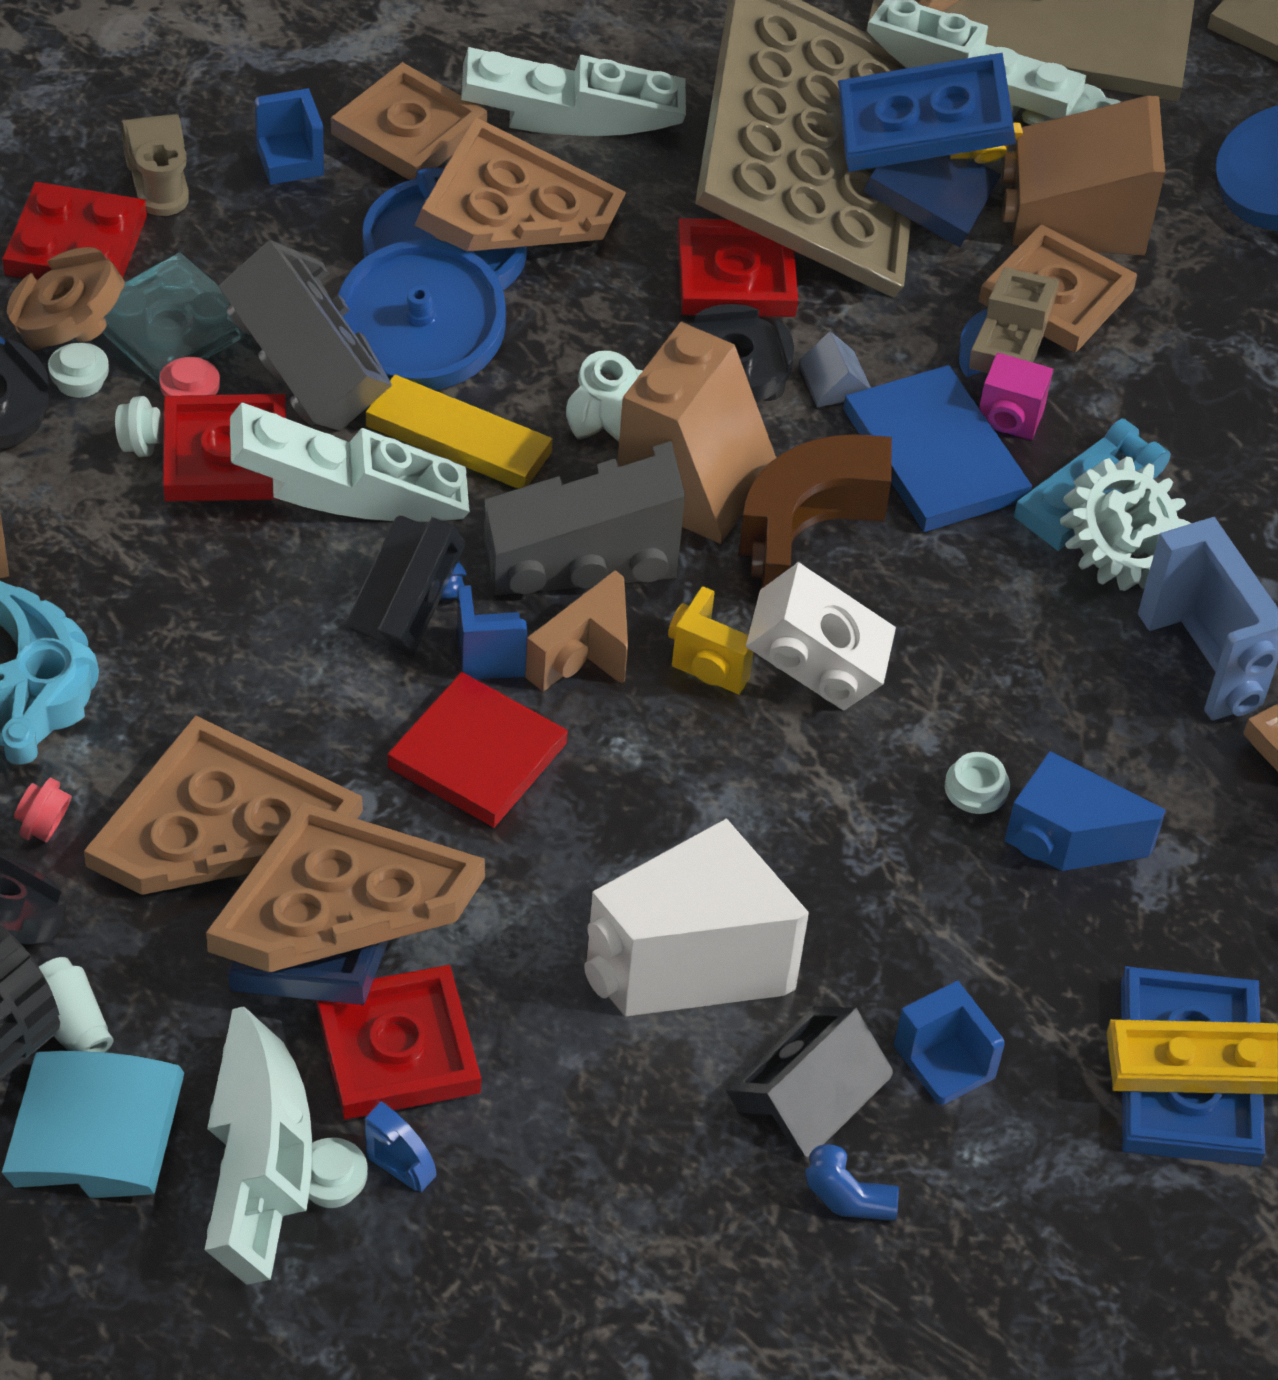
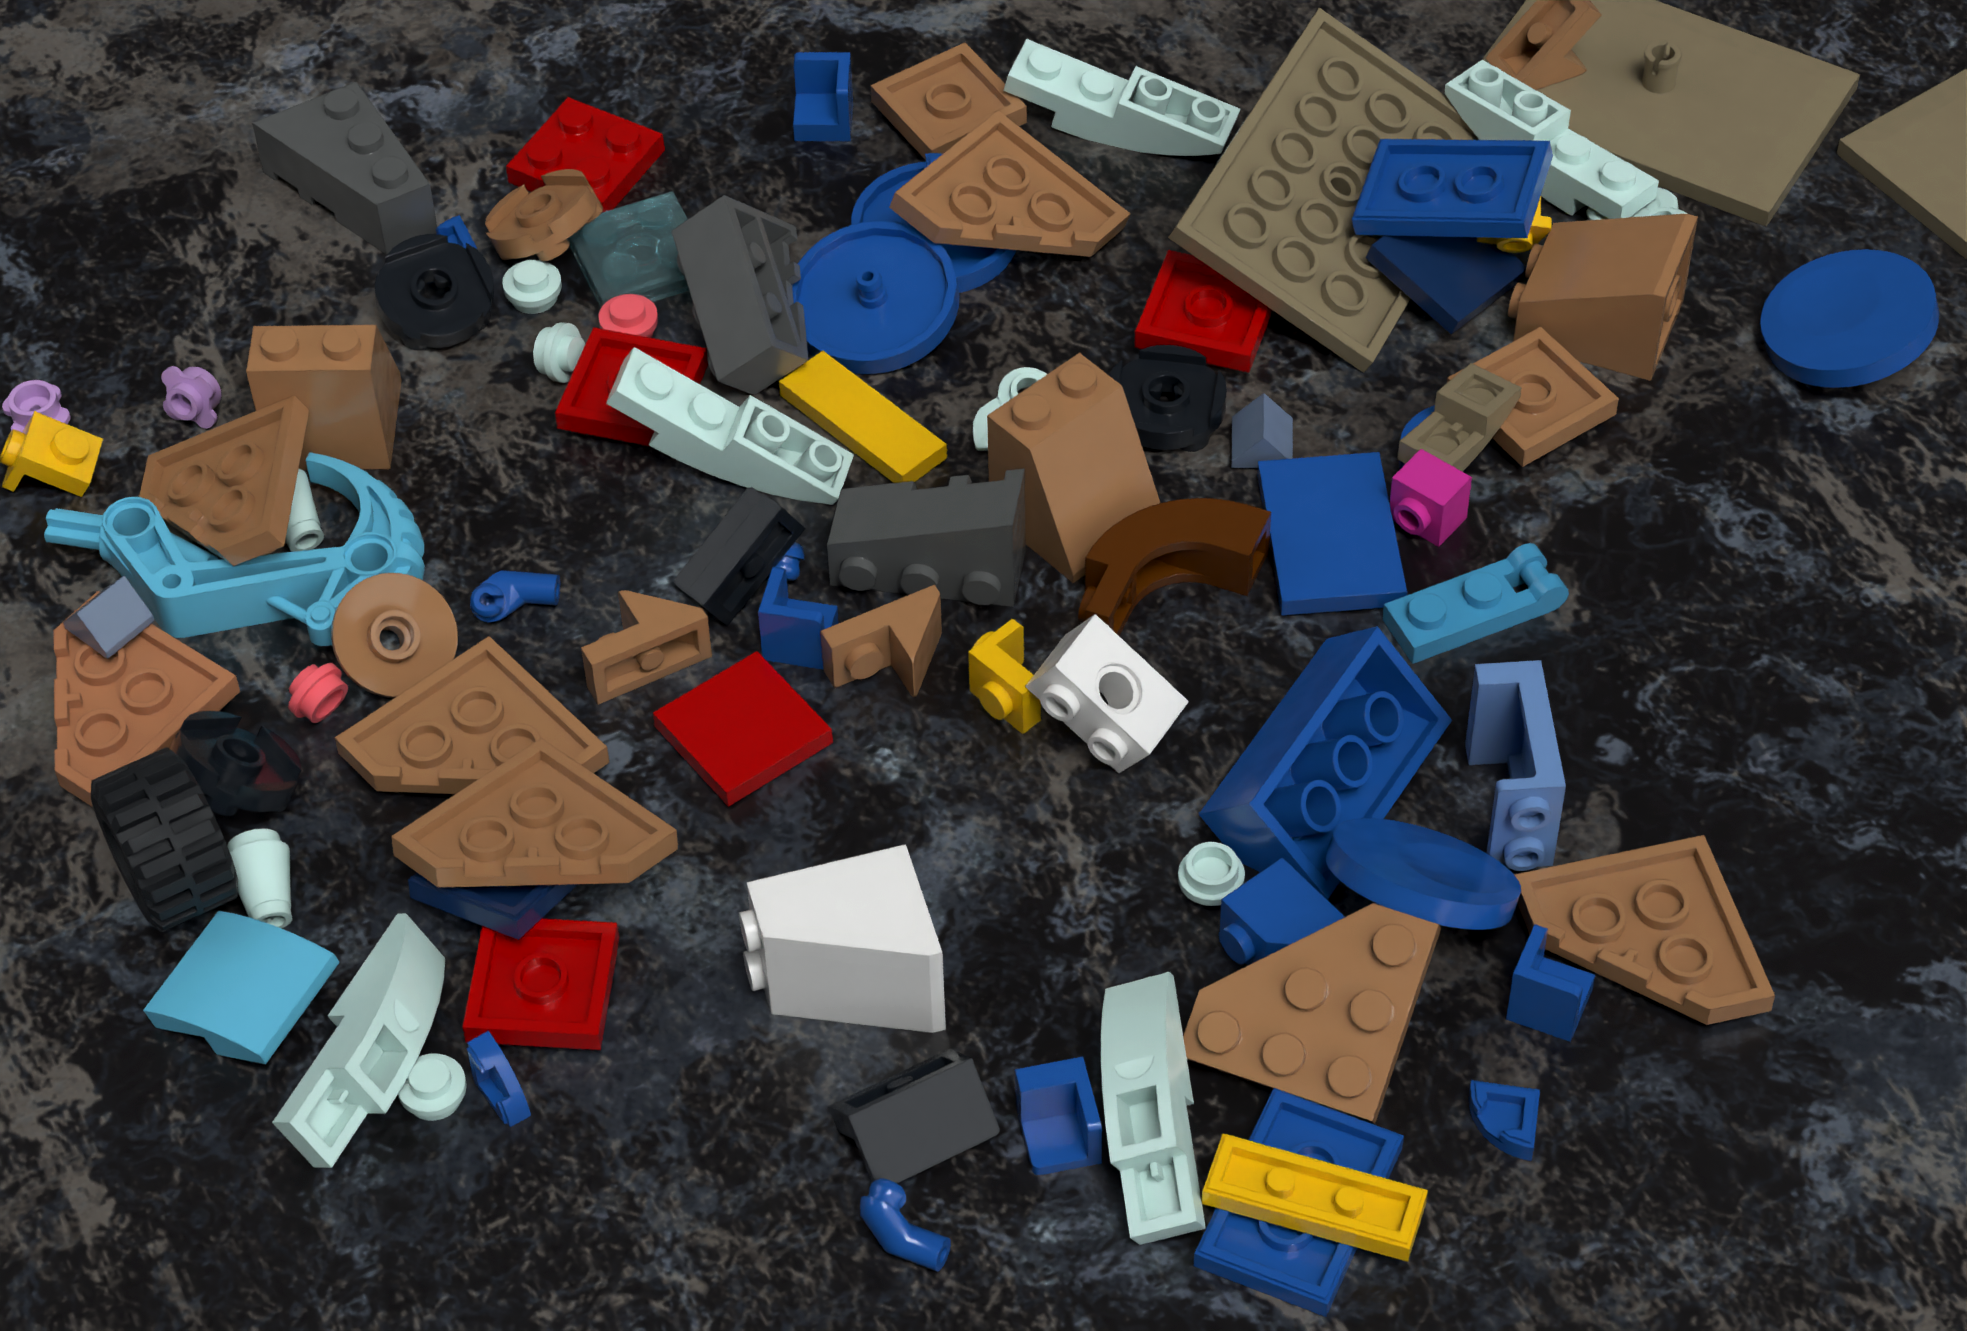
camera: 25 degrees right, 0 degrees up
(119, 722) = (412, 612): none -> medium nougat dish
(157, 162) = (690, 97): dark tan piece -> none
(191, 666) = (510, 590): none -> blue arm
(354, 687) = (655, 642): none -> medium nougat slope
(1033, 1013) = (1146, 1108): none -> light aqua slope
(1035, 652) = (1327, 755): none -> blue slope
(1120, 522) = (1458, 635): light aqua gear -> none
(1143, 886) = (1320, 1012): none -> medium nougat plate
(1179, 736) = (1423, 873): none -> blue piece

